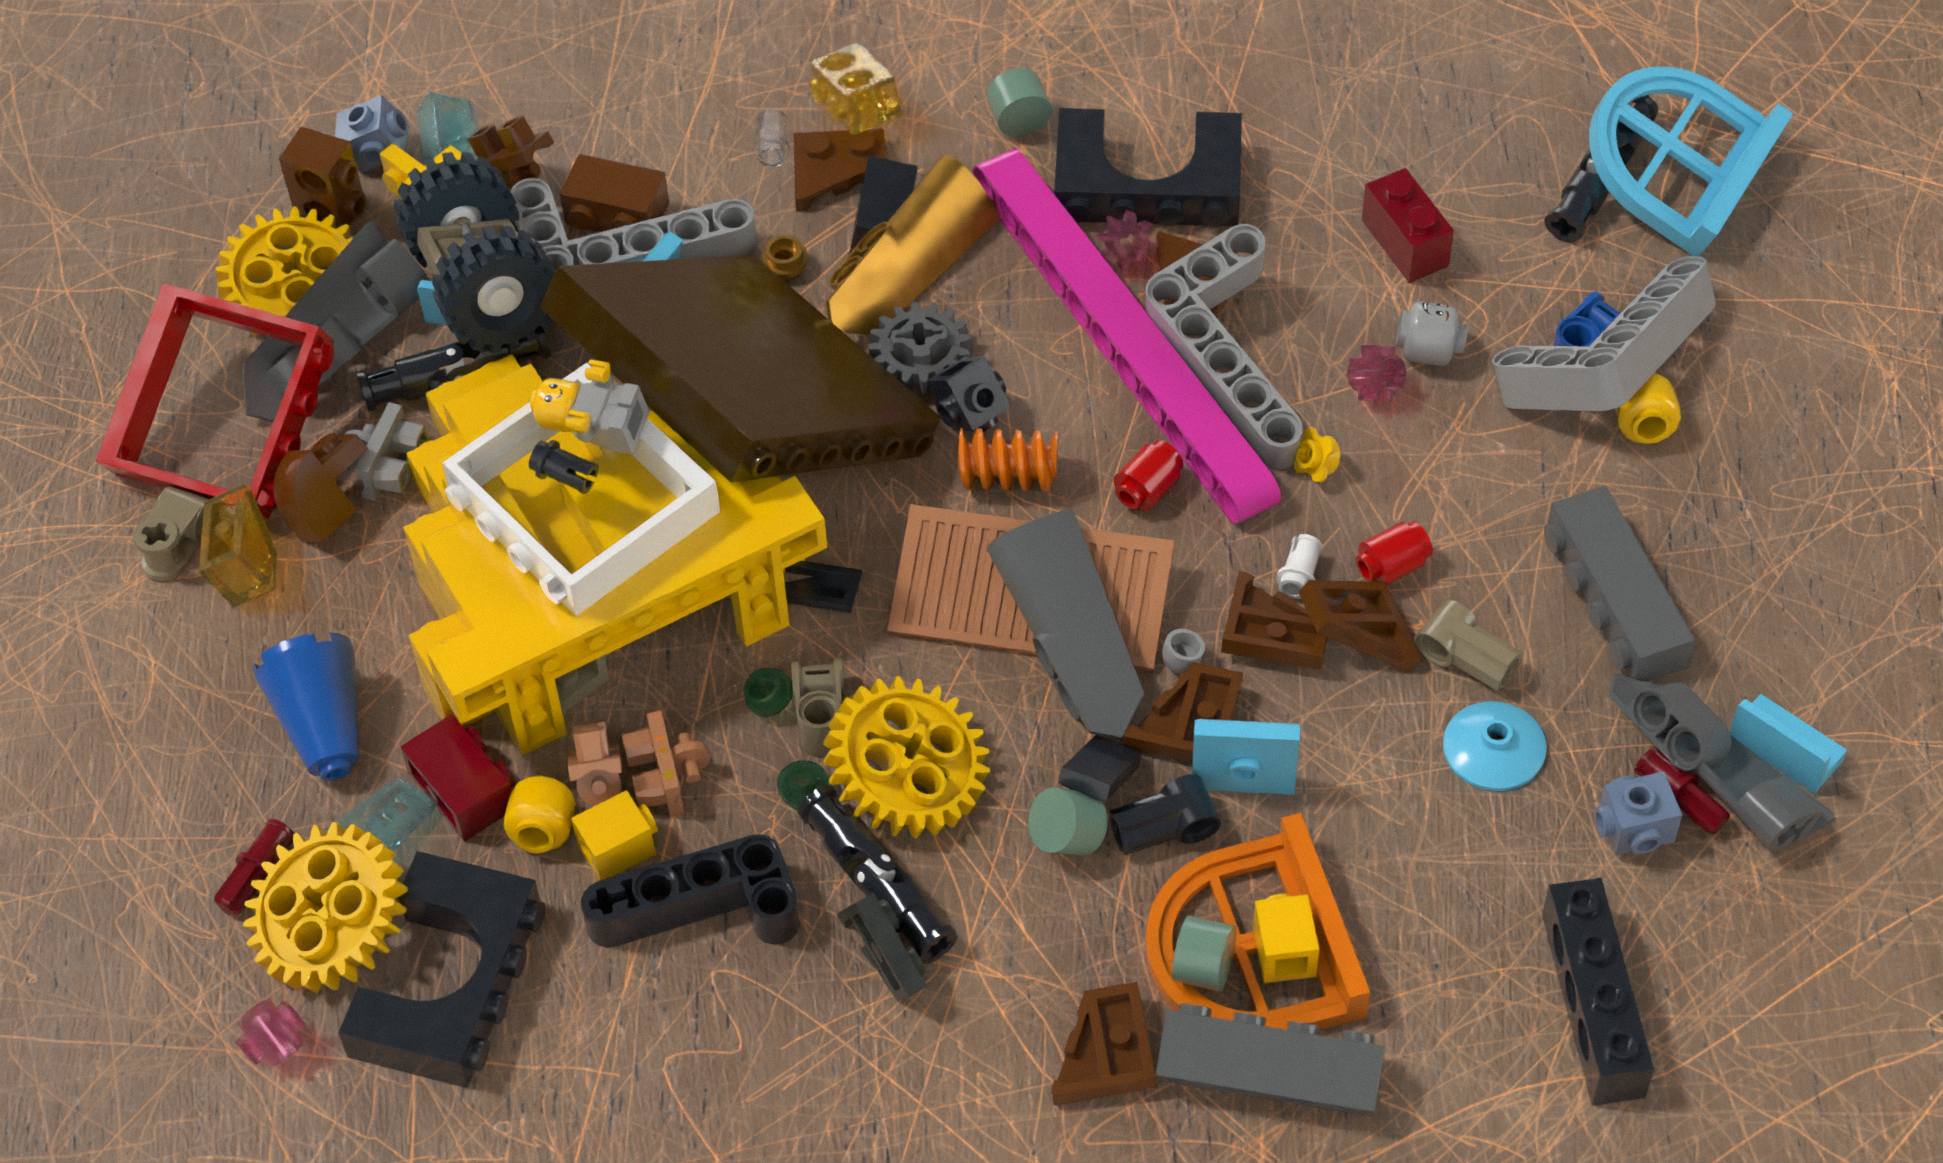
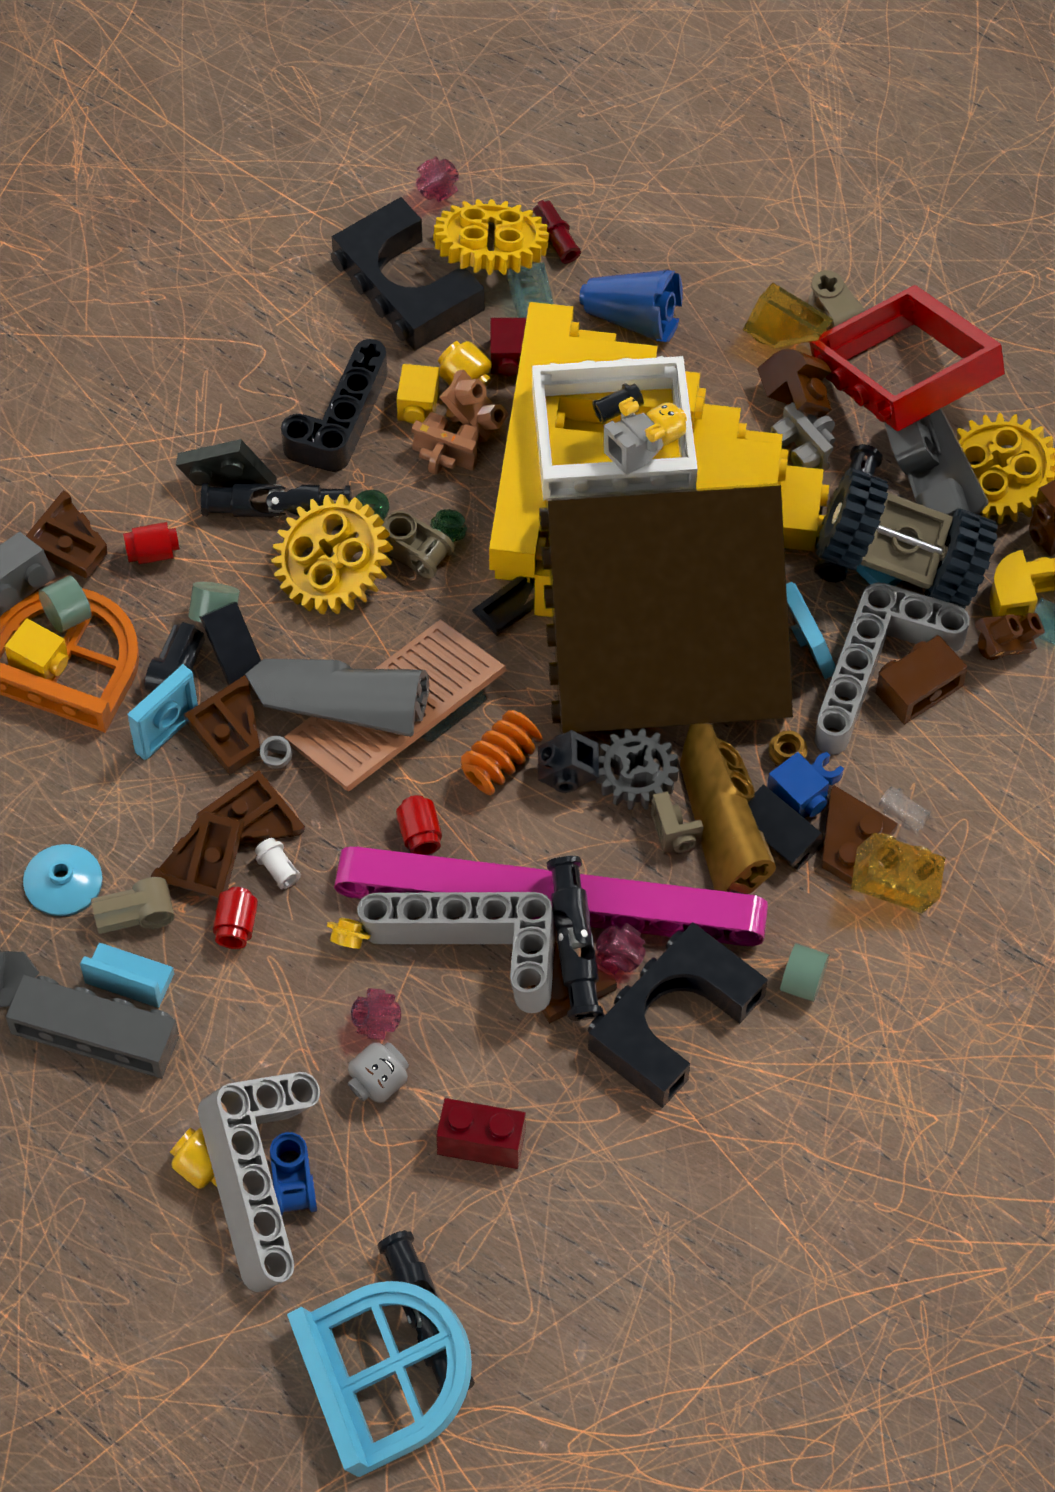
camera: 125 degrees right, 5 degrees up
(820, 219) = (803, 784): none -> blue brick
(959, 281) = (670, 827): none -> dark tan bracket
(1041, 952) = (151, 543): none -> red brick
(1131, 271) = (574, 932): none -> black piece
(1539, 602) = (127, 974): none -> medium azure panel

